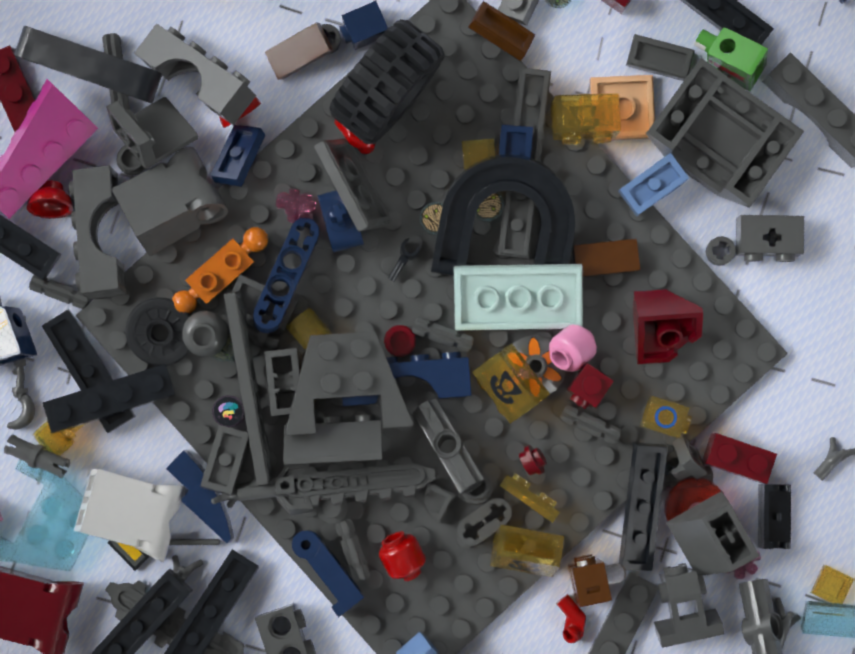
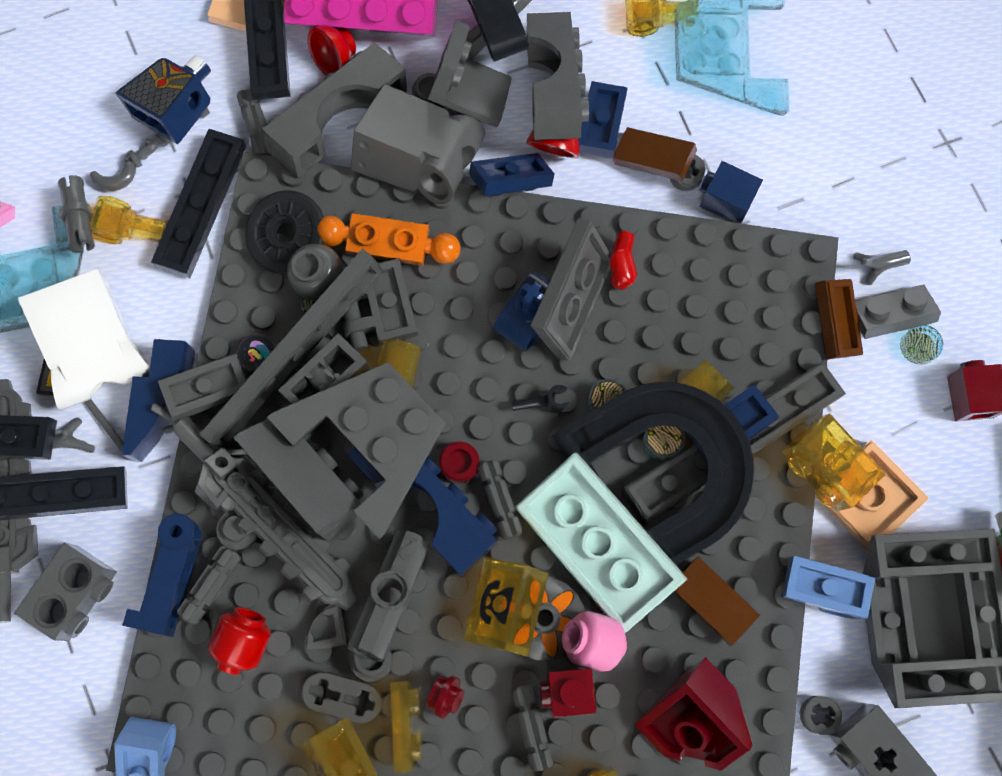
camera: 50 degrees right, 10 degrees down
(108, 399) = (183, 236): black plate -> none
(242, 57) = (605, 116): none -> dark blue plate
(287, 275) = (431, 294): dark blue beam -> none
(295, 204) = (508, 257): clear pink plant -> none
(386, 81) = (700, 233): black tyre -> none
(660, 57) = (950, 492): dark grey tile -> none

